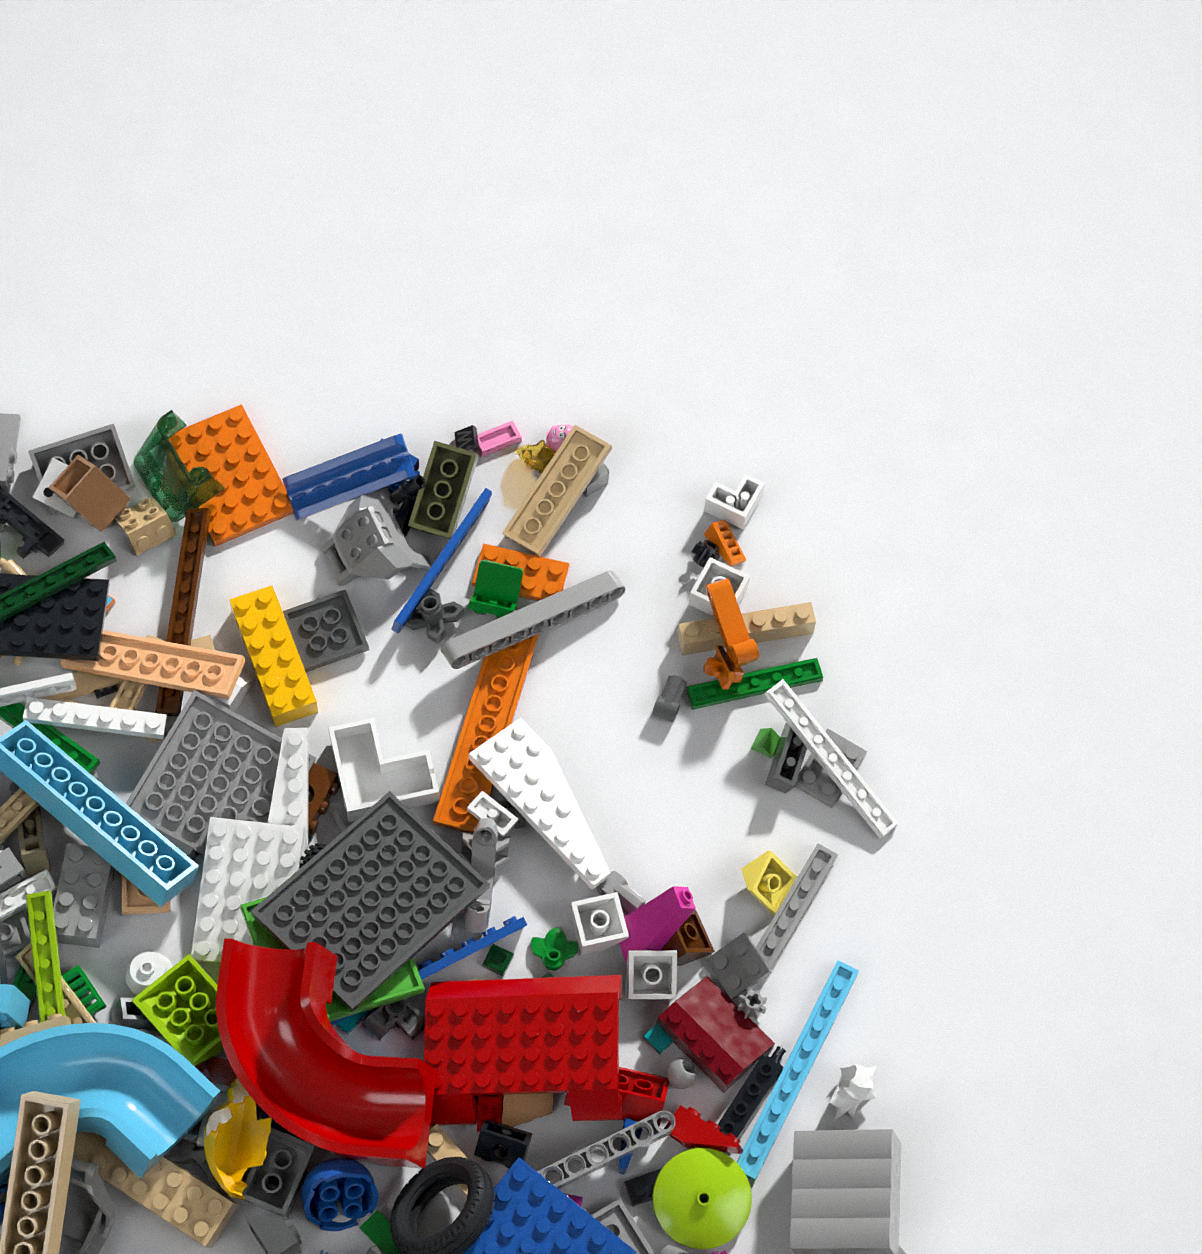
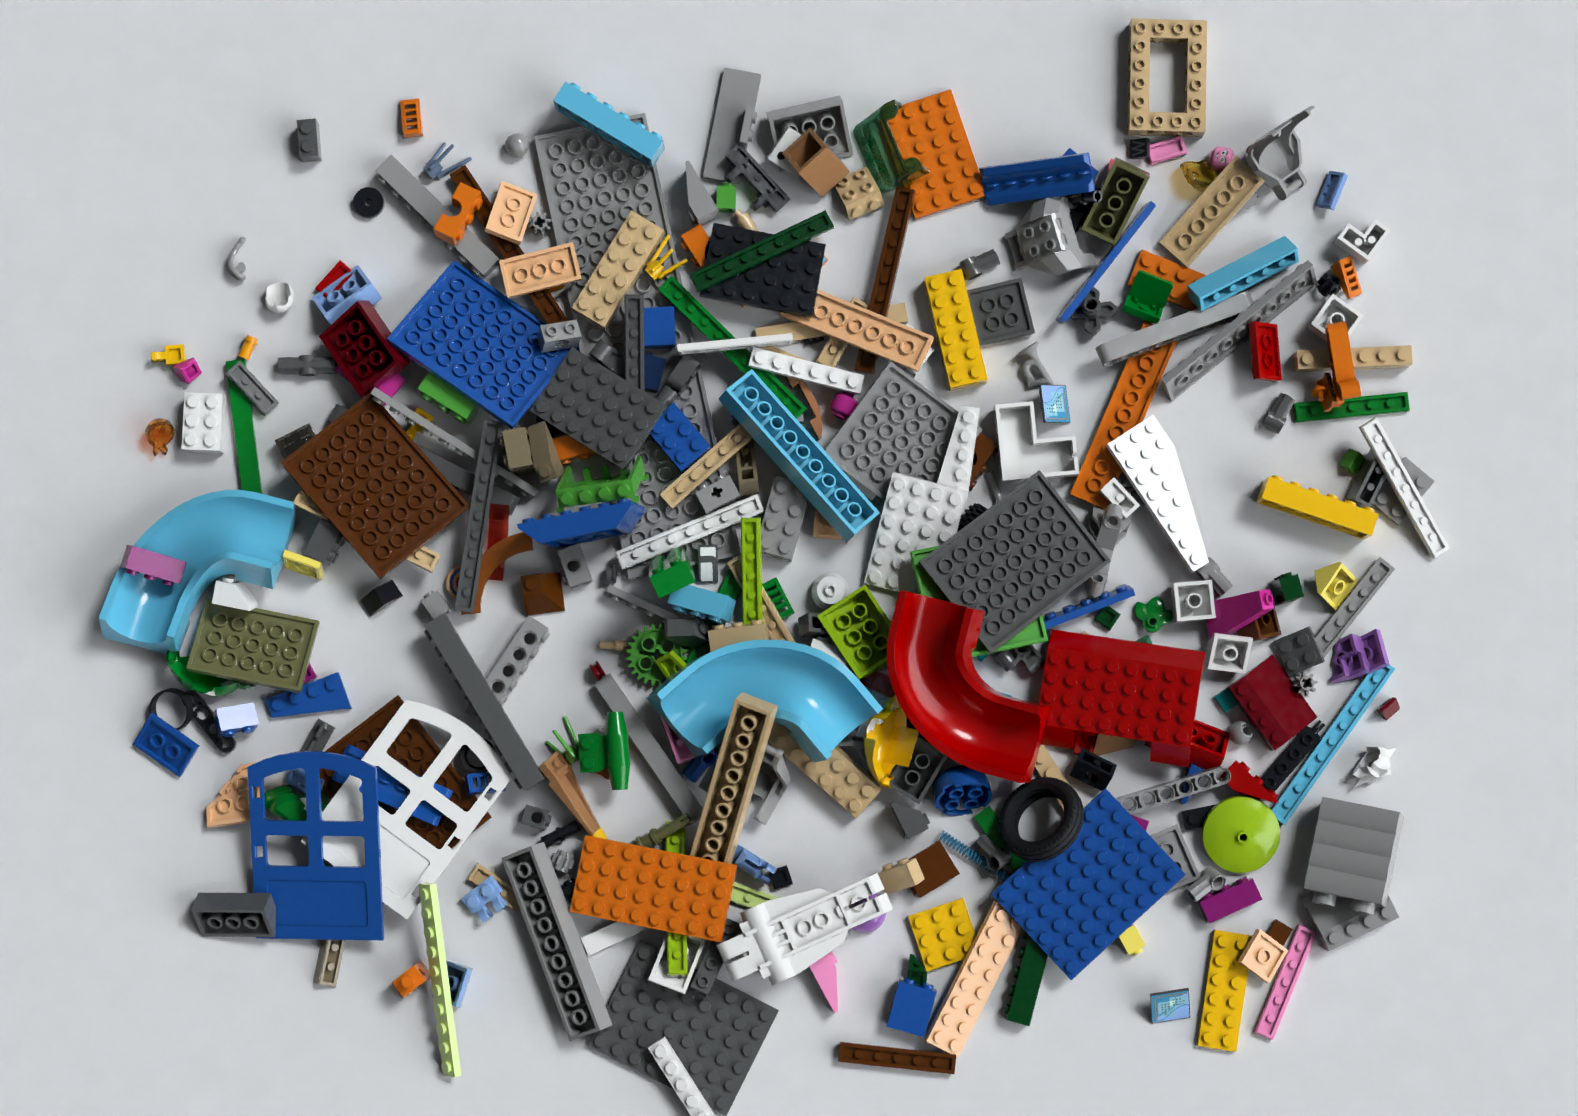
camera: 10 degrees right, 20 degrees up
(86, 739) = (816, 423): none -> nougat slope
(143, 754) = (843, 405): none -> dark pink head
(289, 585) = (974, 266): none -> dark grey piece
(366, 668) = (1031, 353): none -> light grey piece
(401, 721) = (1054, 404): none -> piece
(488, 409) = (1139, 119): none -> tan brick
(603, 550) = (1243, 273): none -> medium azure brick
(607, 614) = (1237, 332): none -> light grey plate
(624, 420) = (1279, 156): none -> light grey piece
(642, 632) = (1265, 351): none -> red plate
(692, 455) = (1331, 190): none -> medium blue plate
(710, 890) = (1286, 588): none -> dark green brick
(732, 795) = (1317, 507): none -> yellow brick
(812, 962) = (1359, 656): none -> medium lavender slope
(860, 1019) = (1389, 708): none -> dark red slope

